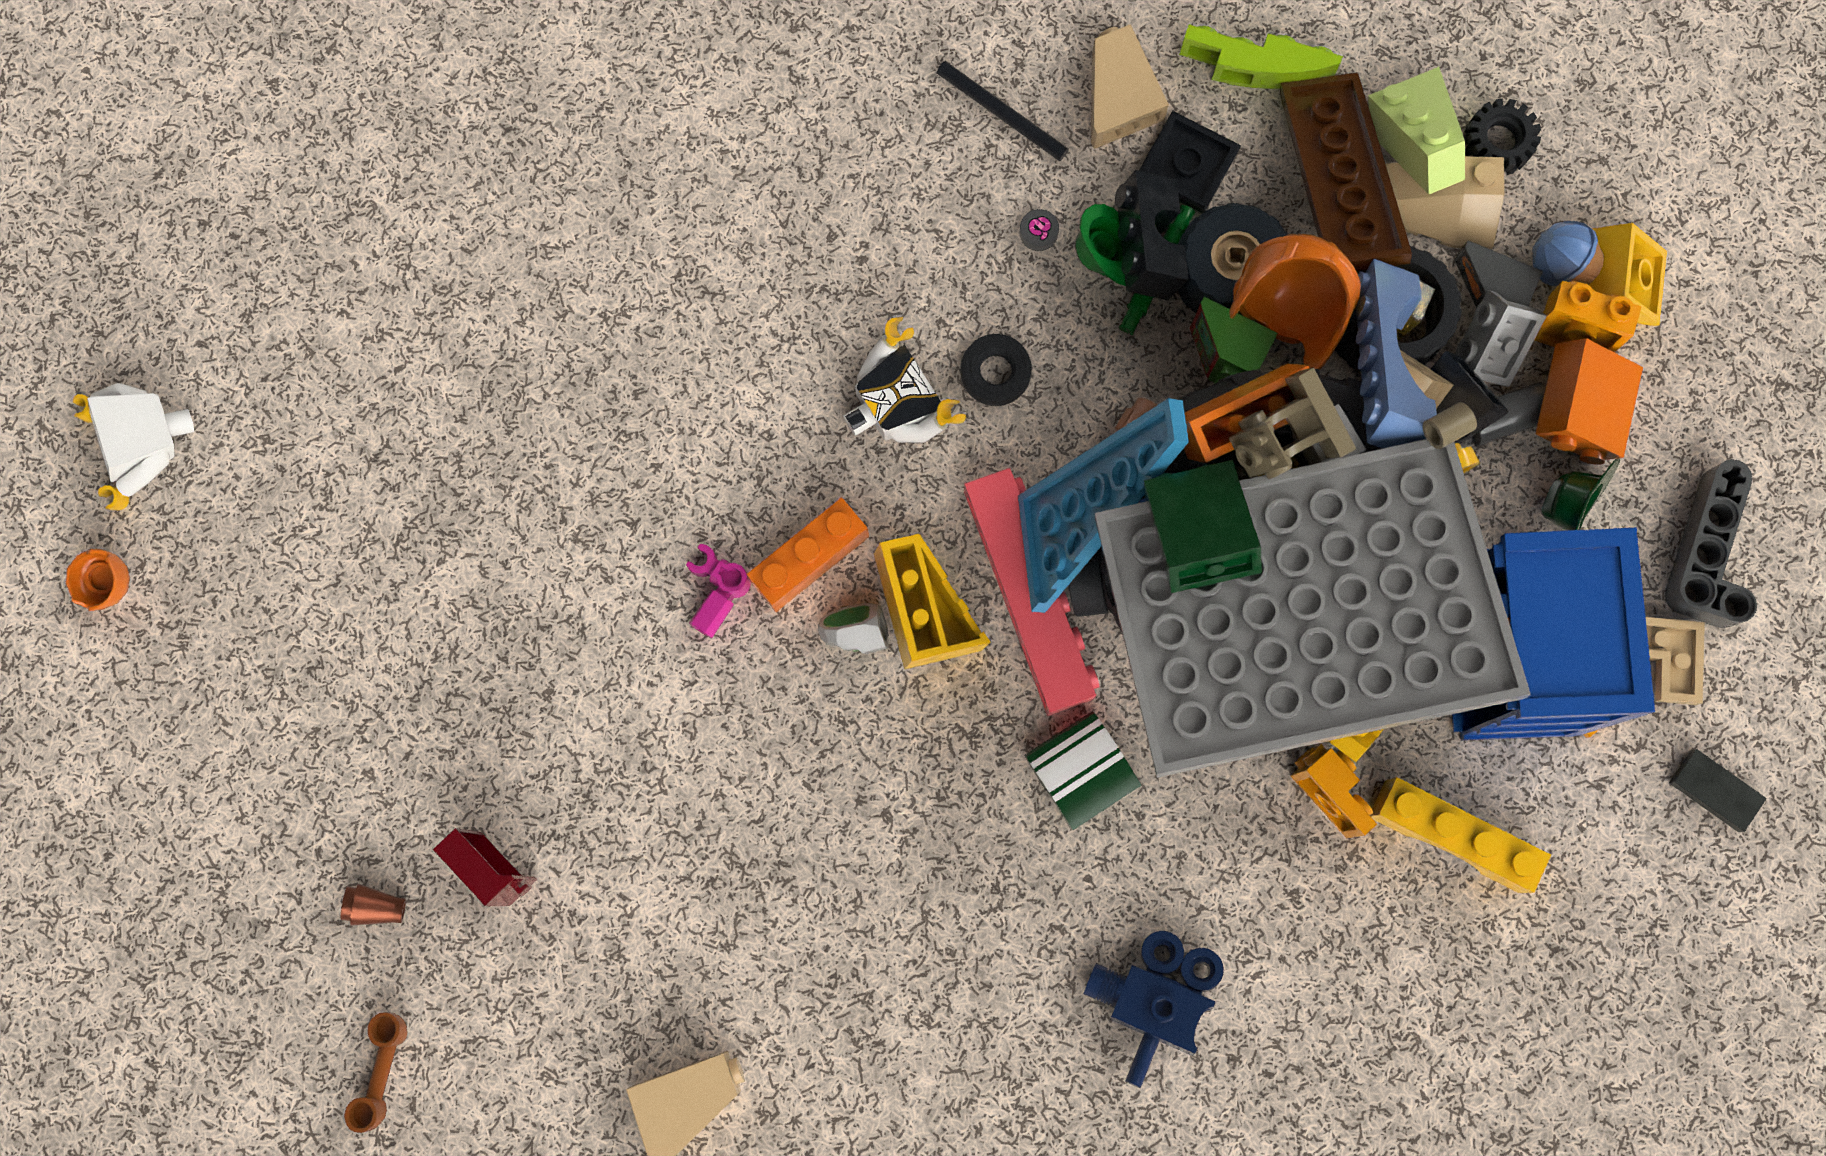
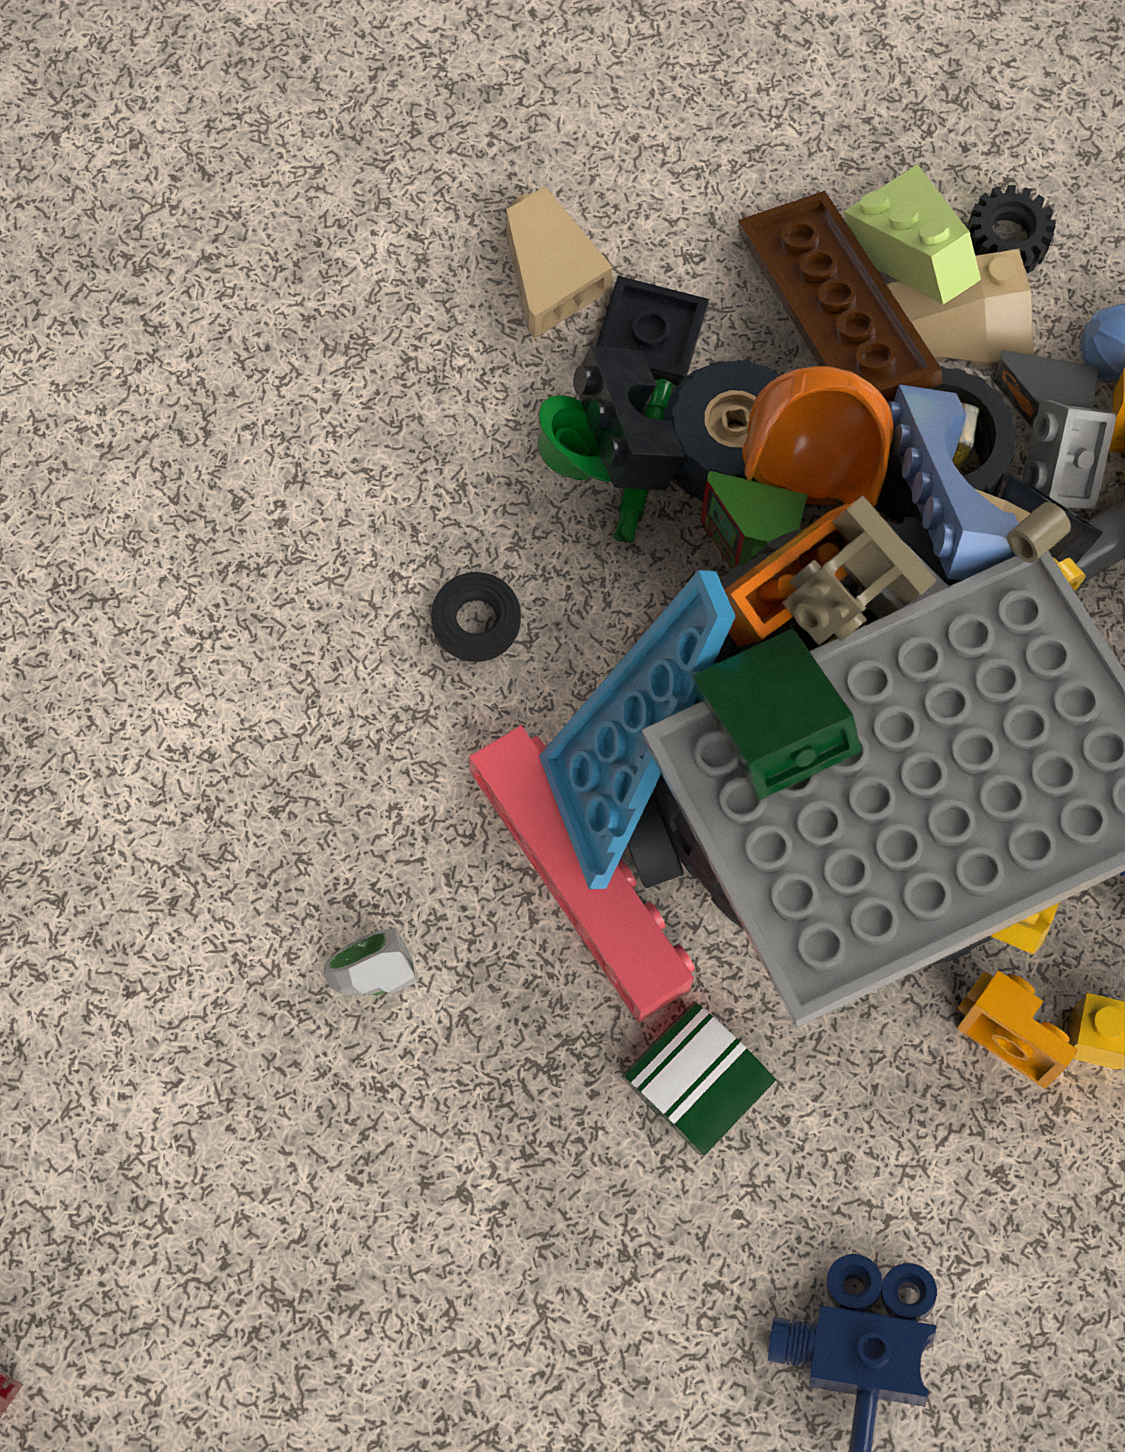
camera: 20 degrees left, 10 degrees down
(730, 583) = (201, 945): dark pink bar -> none
(808, 554) = (292, 887): orange brick -> none
(897, 394) = (362, 668): torso -> none
(923, 606) = (451, 917): yellow wedge -> none
(1002, 111) = (414, 316): black bar -> none
(1039, 230) = (490, 443): dark grey tile -> none
(1254, 66) = (707, 206): lime slope -> none

